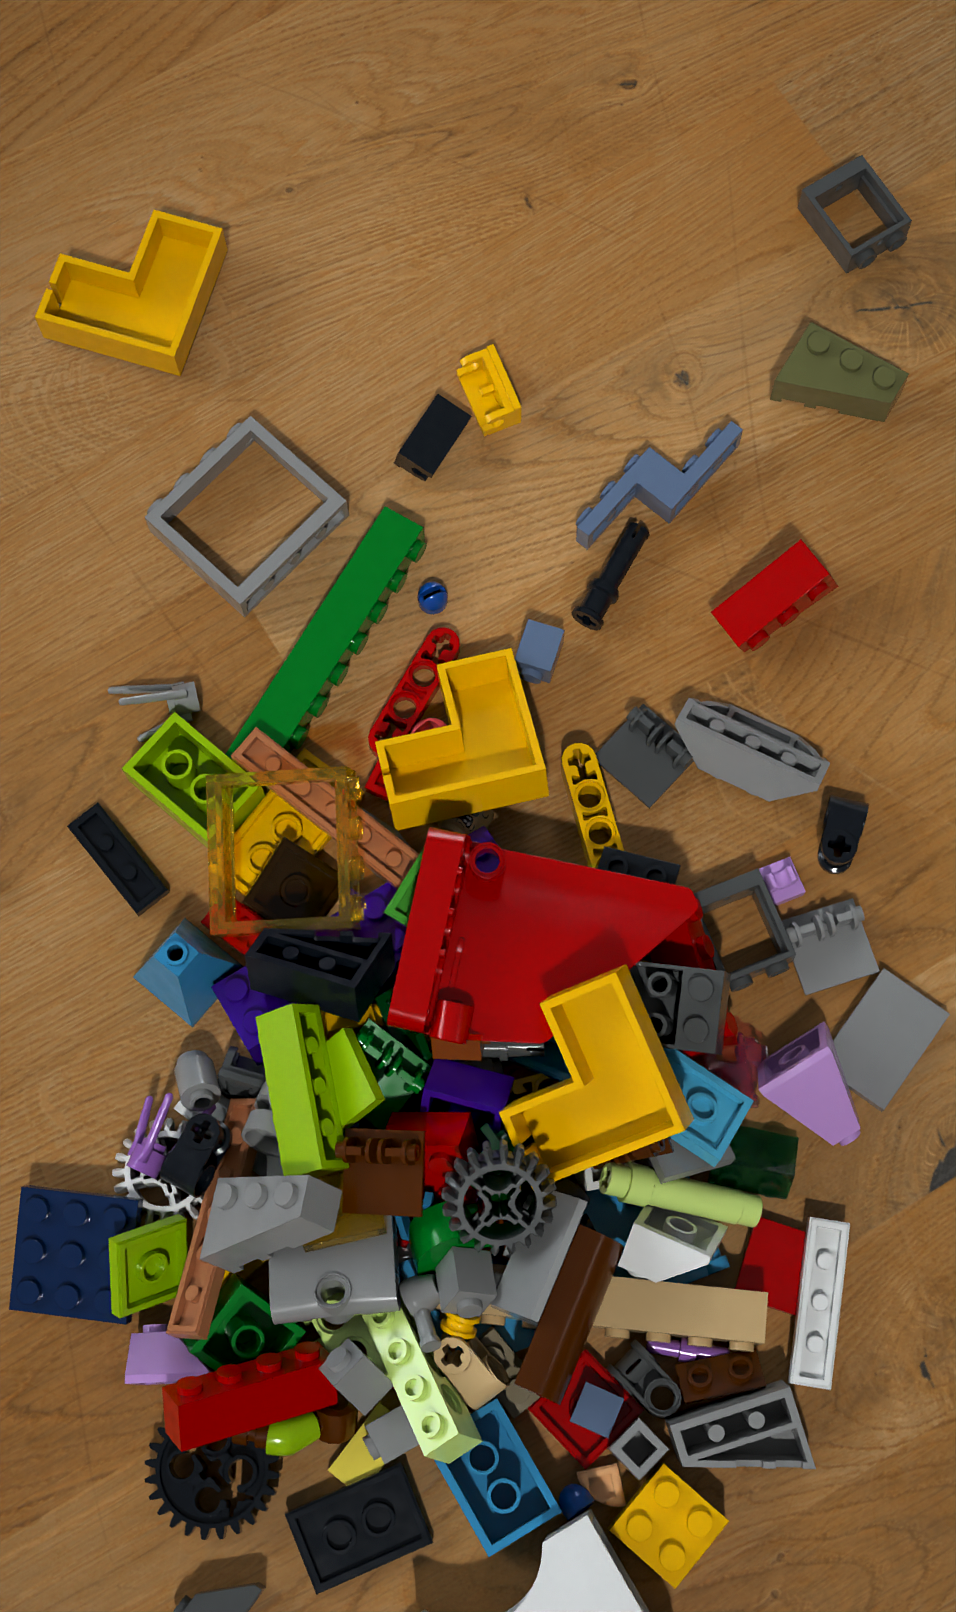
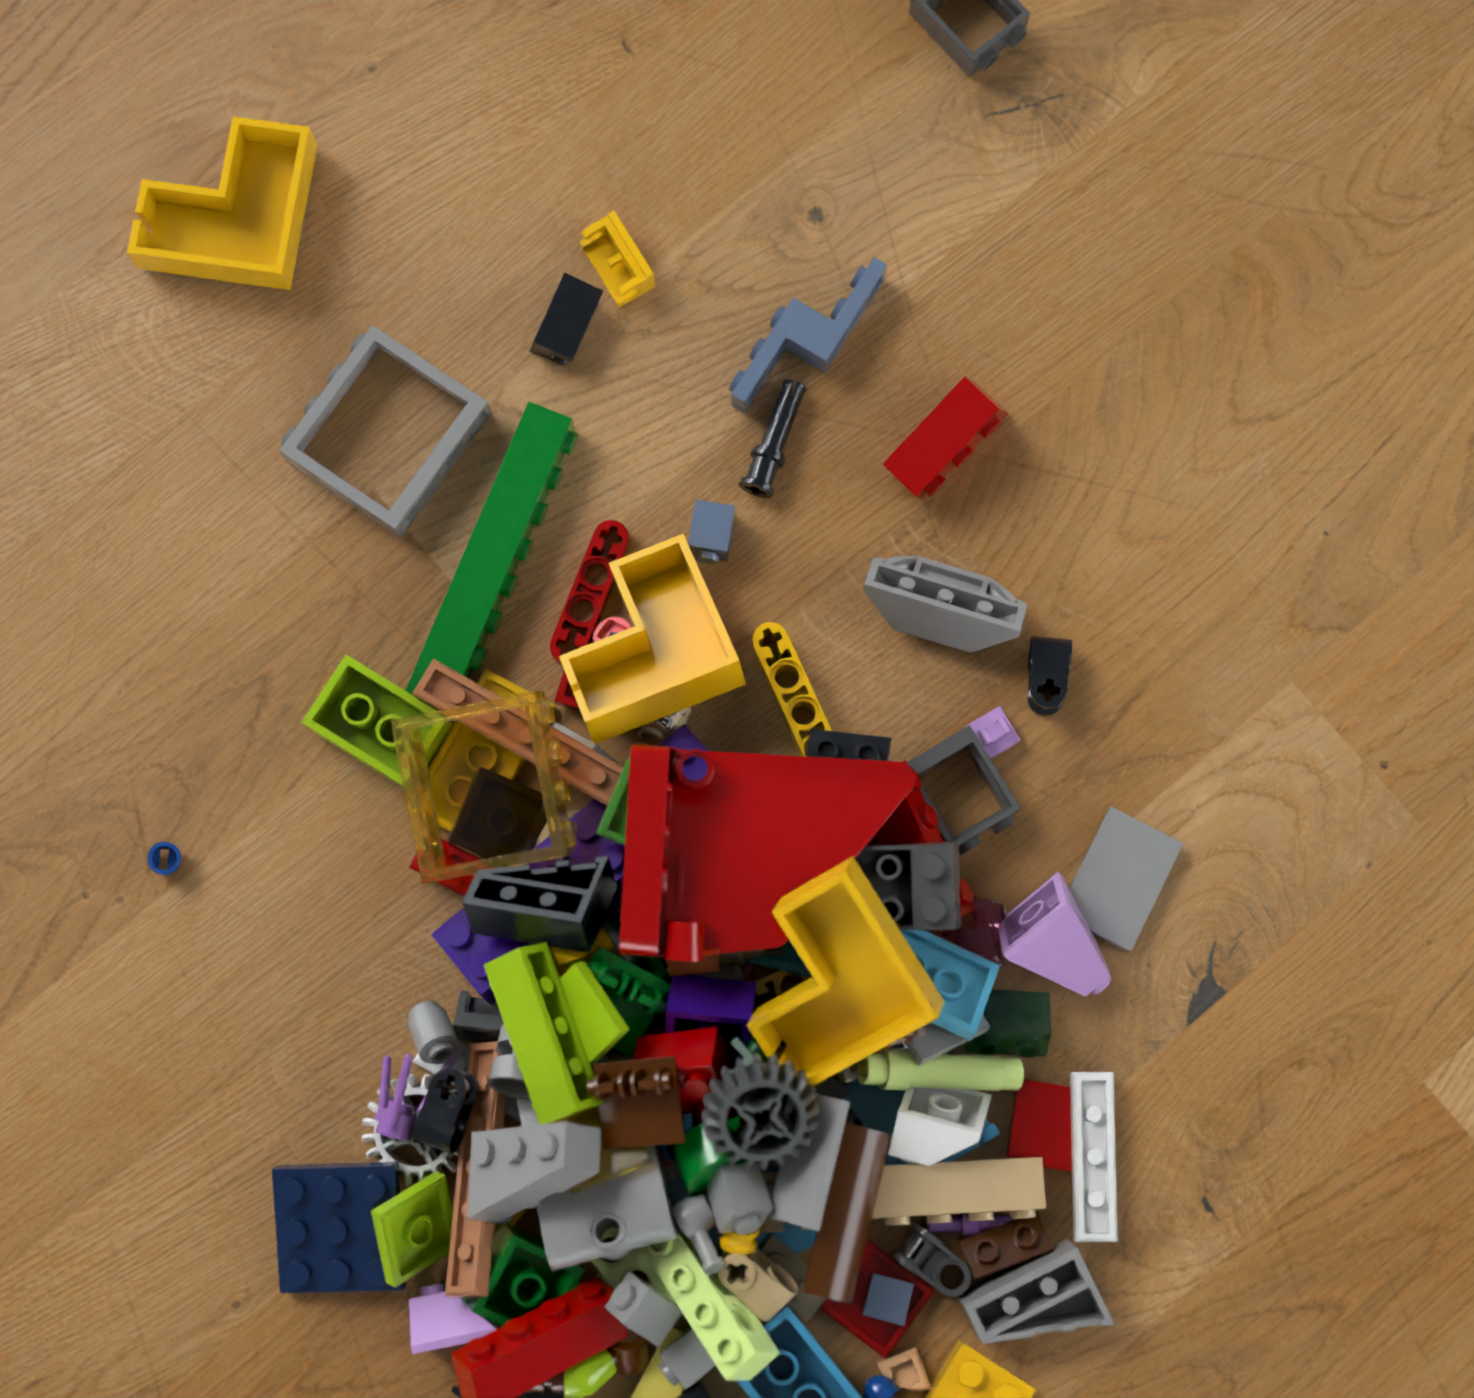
camera: 10 degrees left, 5 degrees up
(118, 859) = (312, 813): black tile -> none
(180, 698) = (346, 633): light grey plant -> none
(185, 970) = (408, 935): dark azure slope -> none
(434, 603) = (597, 494): blue hinge -> none
(638, 1448) = (935, 1332): light grey brick -> none
(645, 755) = (836, 622): dark grey hinge -> none
(830, 946) = (1053, 792): light grey hinge -> none
(838, 377) = (977, 191): olive wedge -> none

